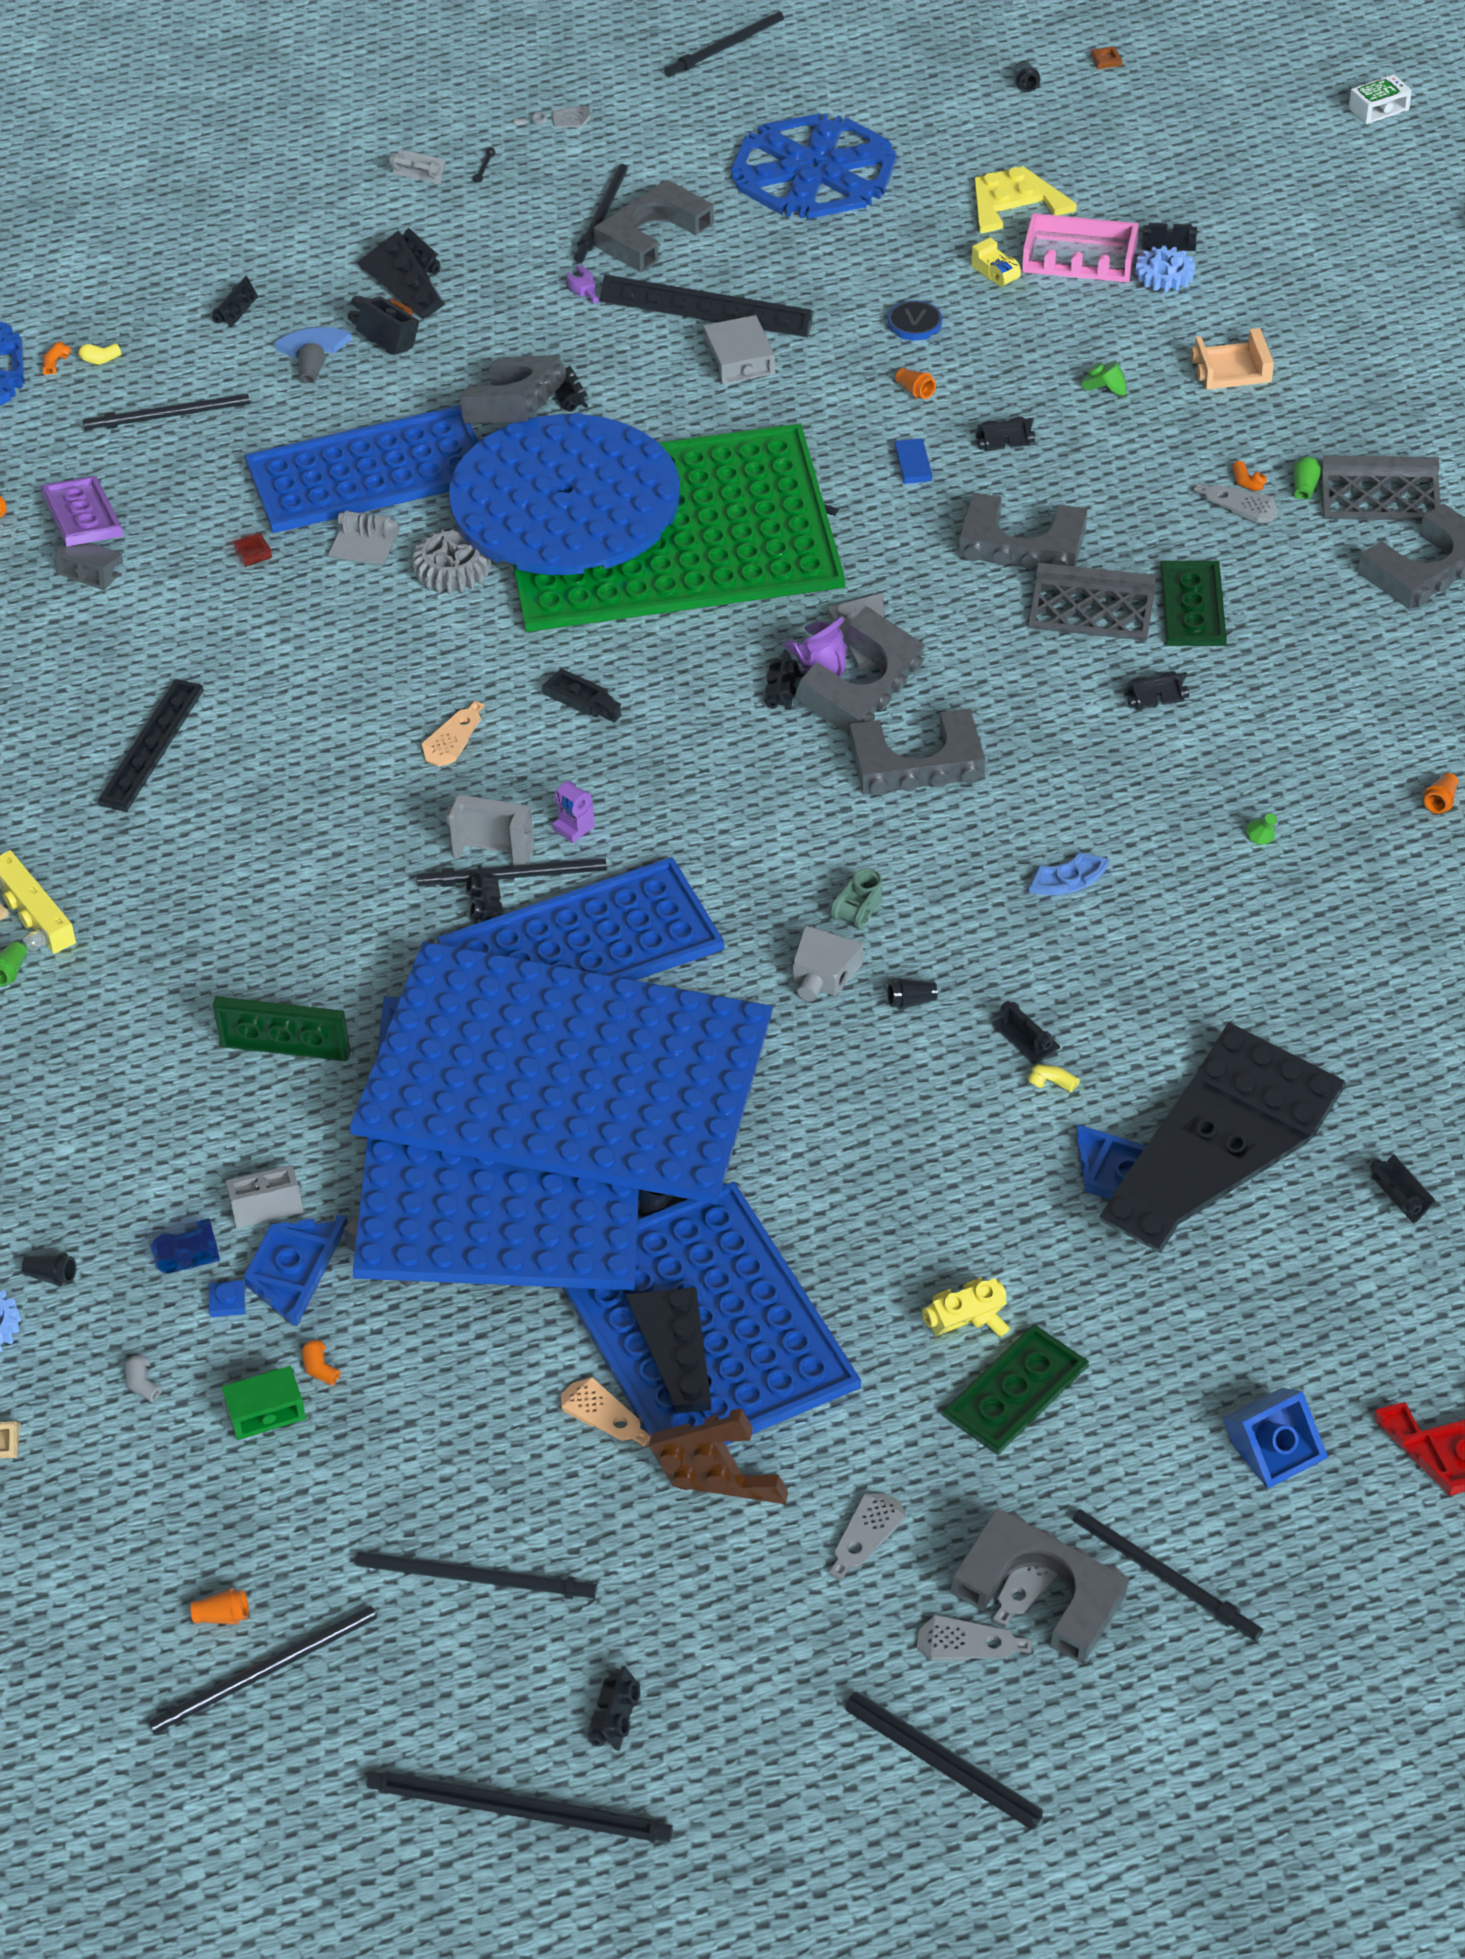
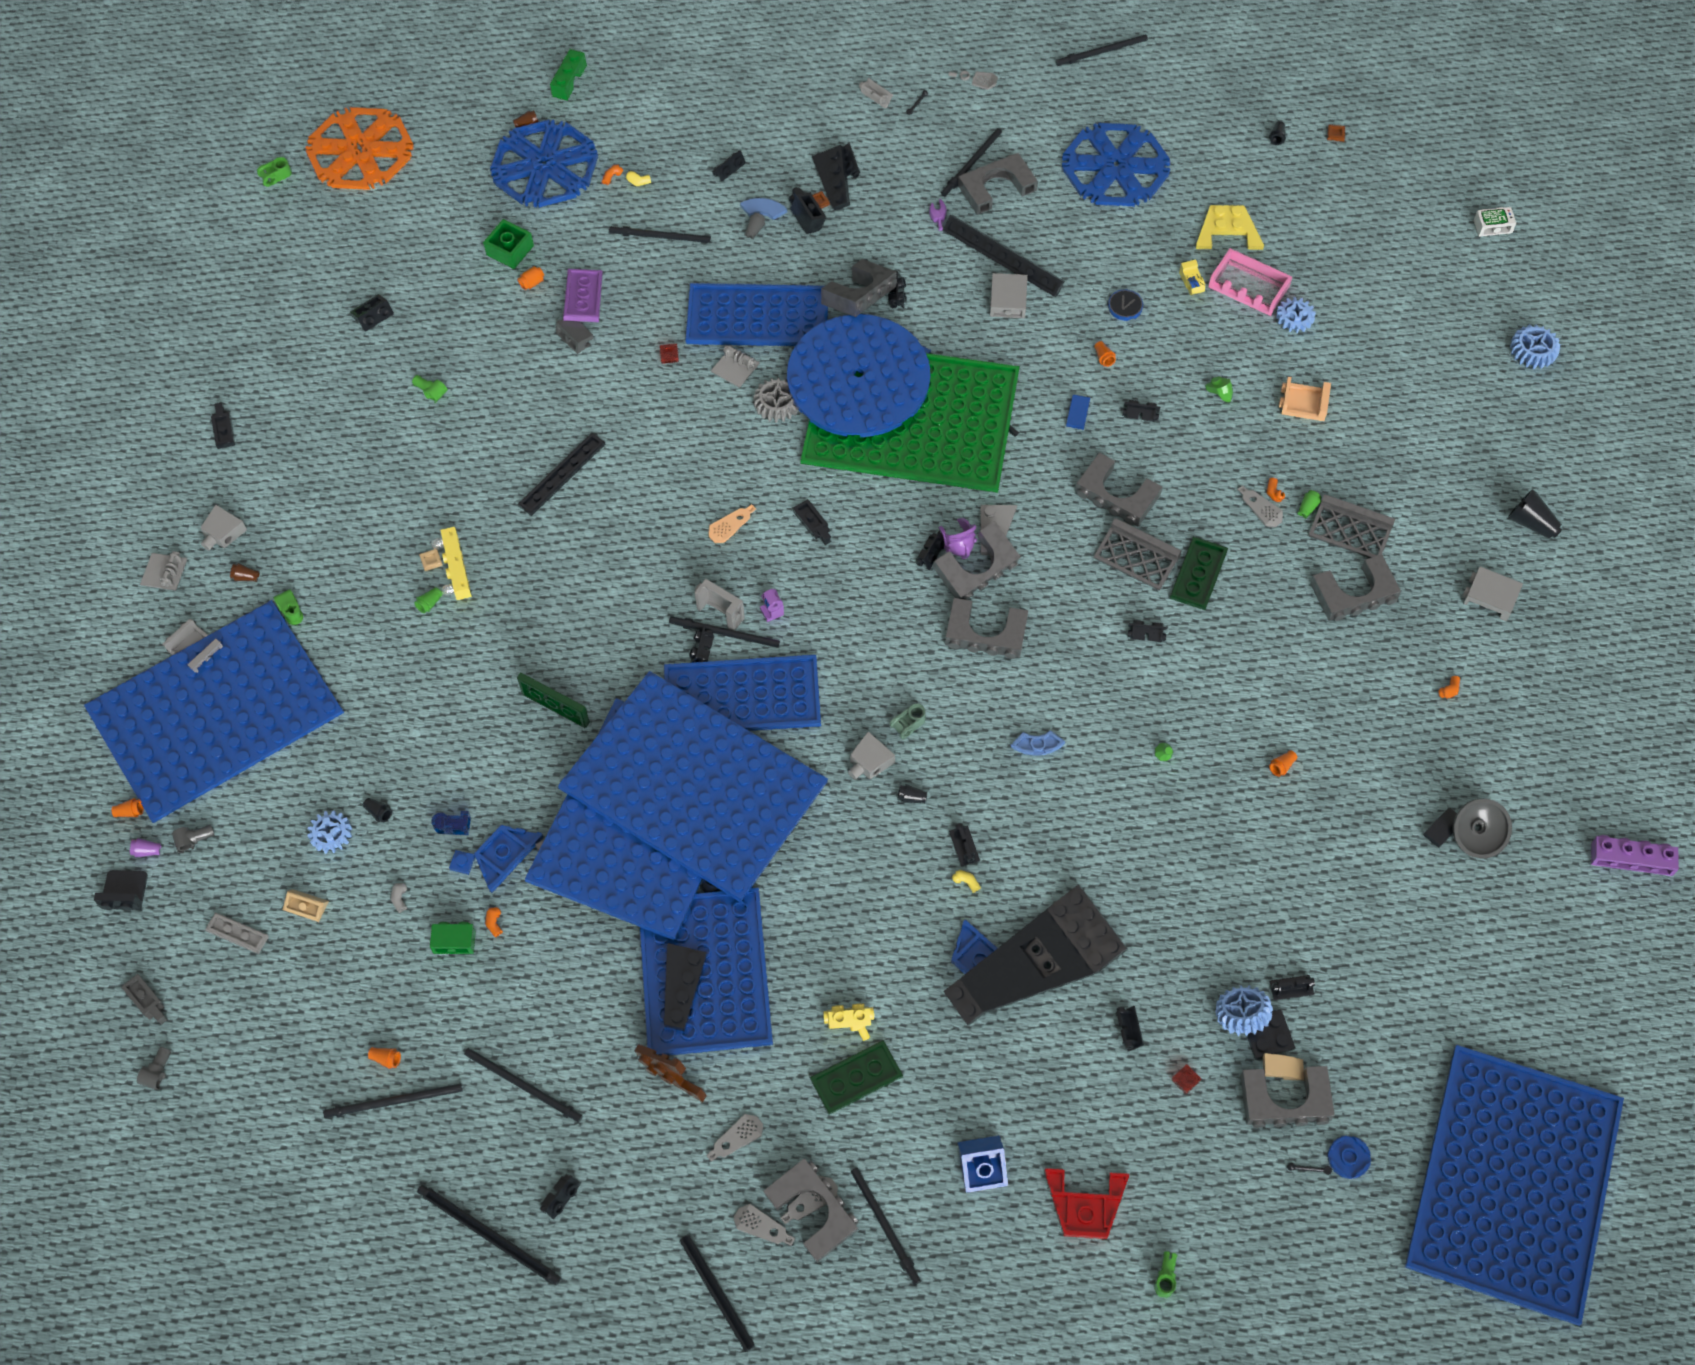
camera: 20 degrees right, 15 degrees up
(264, 1196) = (504, 804): light grey hinge -> none
(599, 1408) = (630, 1011): light nougat piece -> none
(1182, 236) = (1311, 292): black hinge -> none

